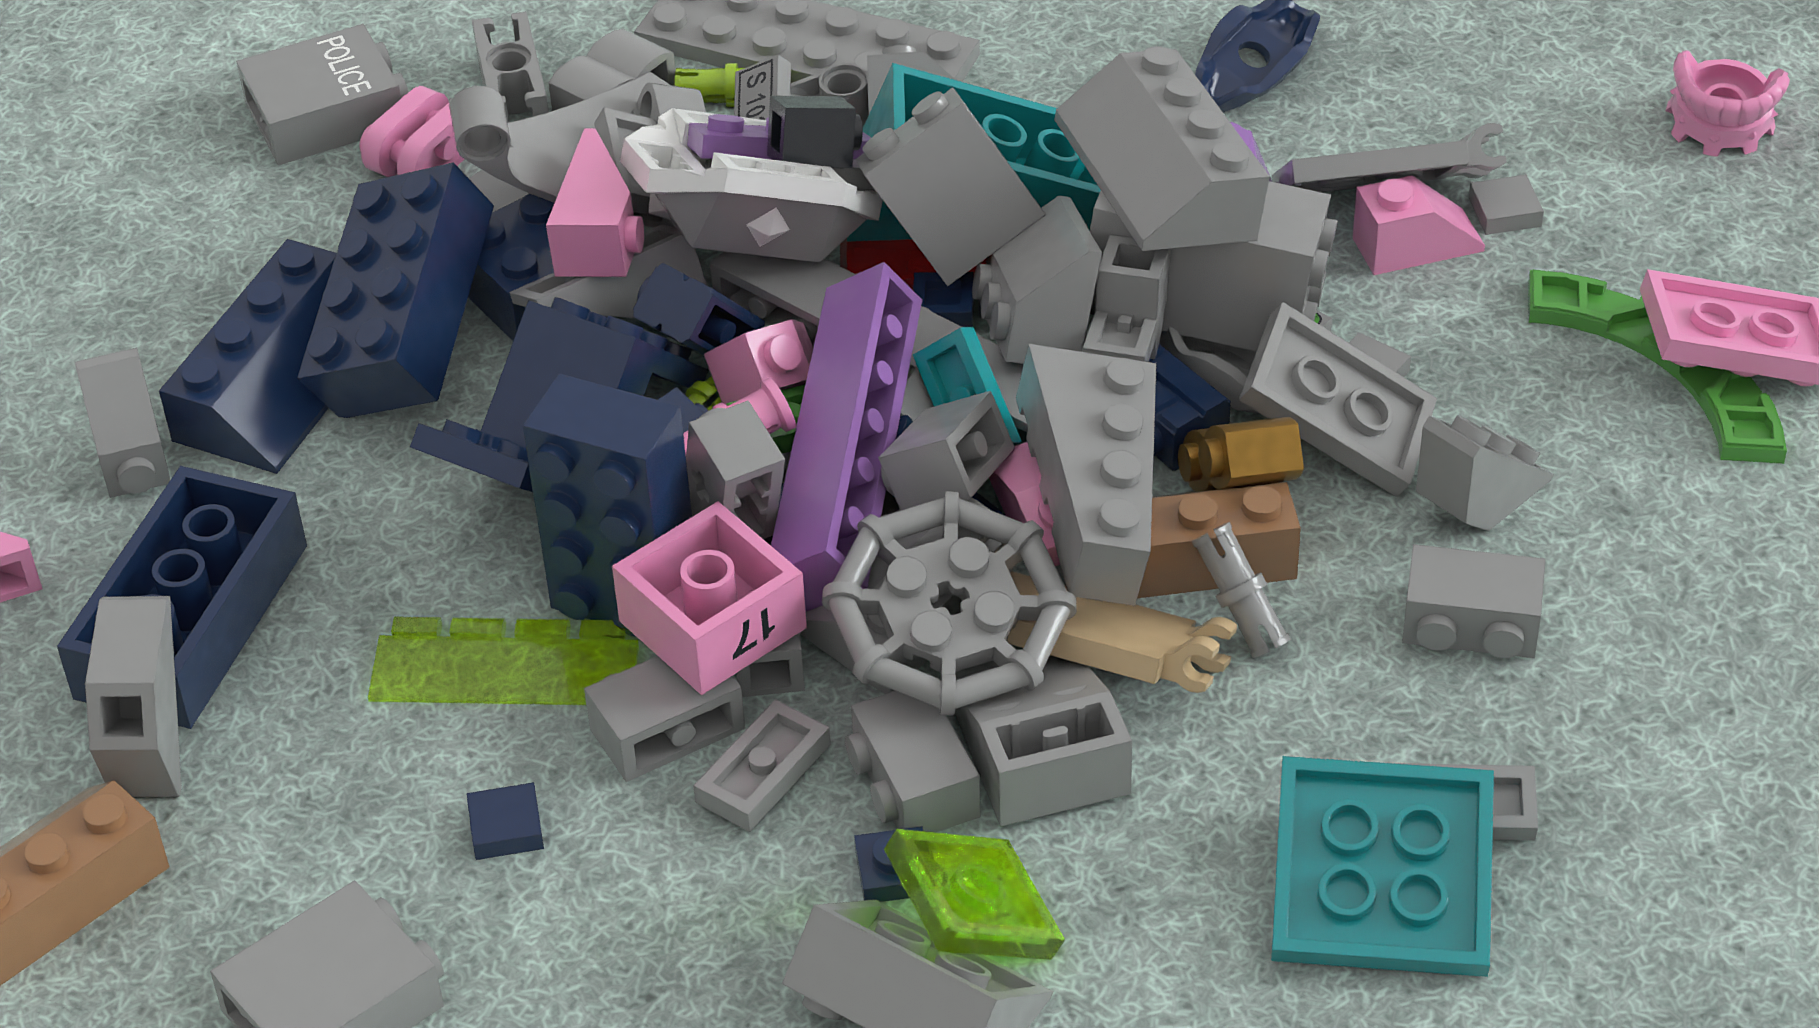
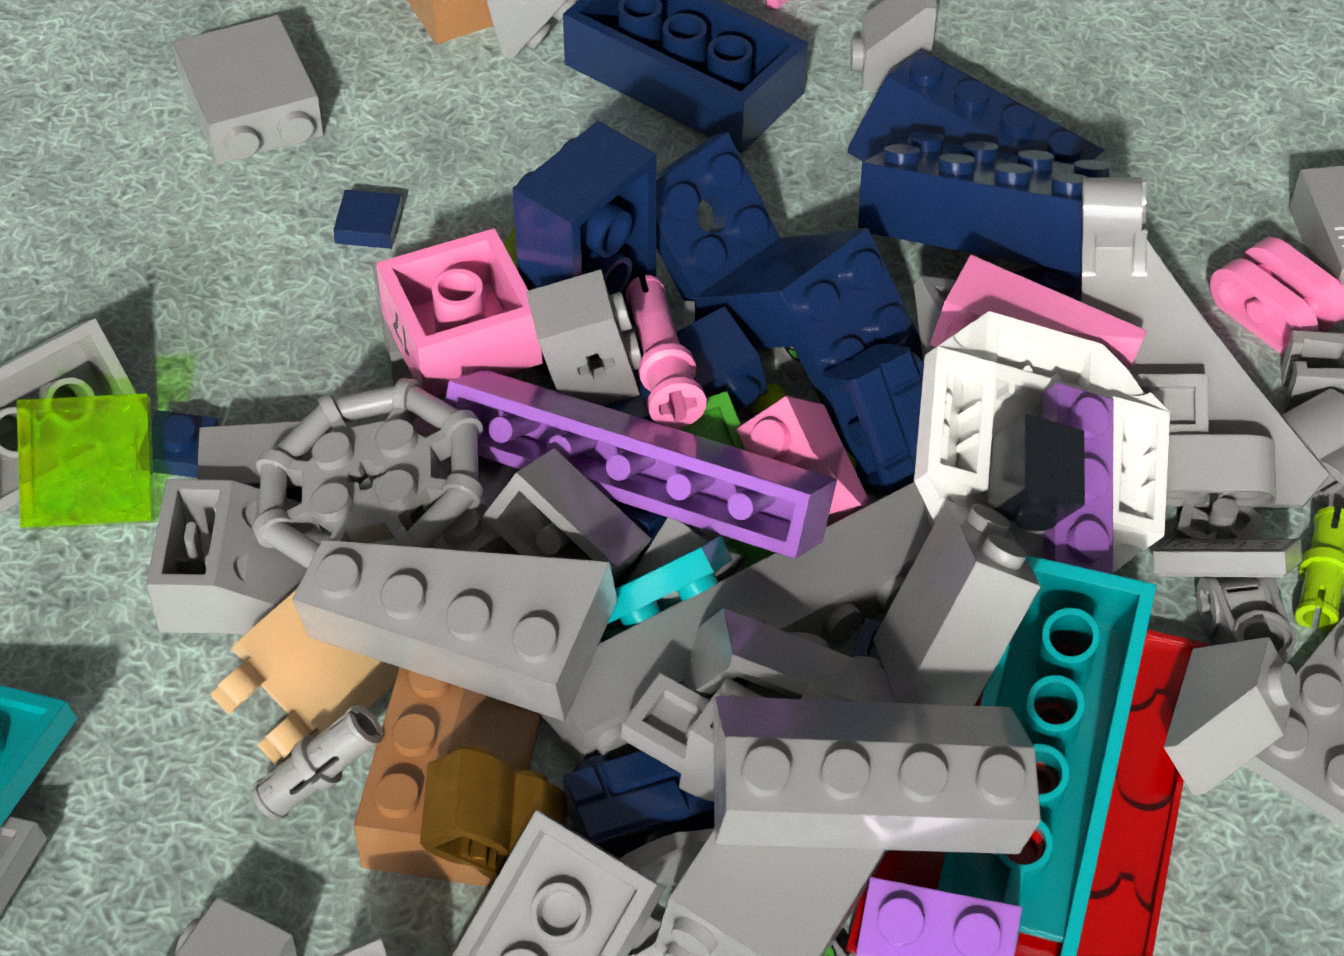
camera: 105 degrees right, 5 degrees up
(762, 765) = (321, 364): light grey plate -> none

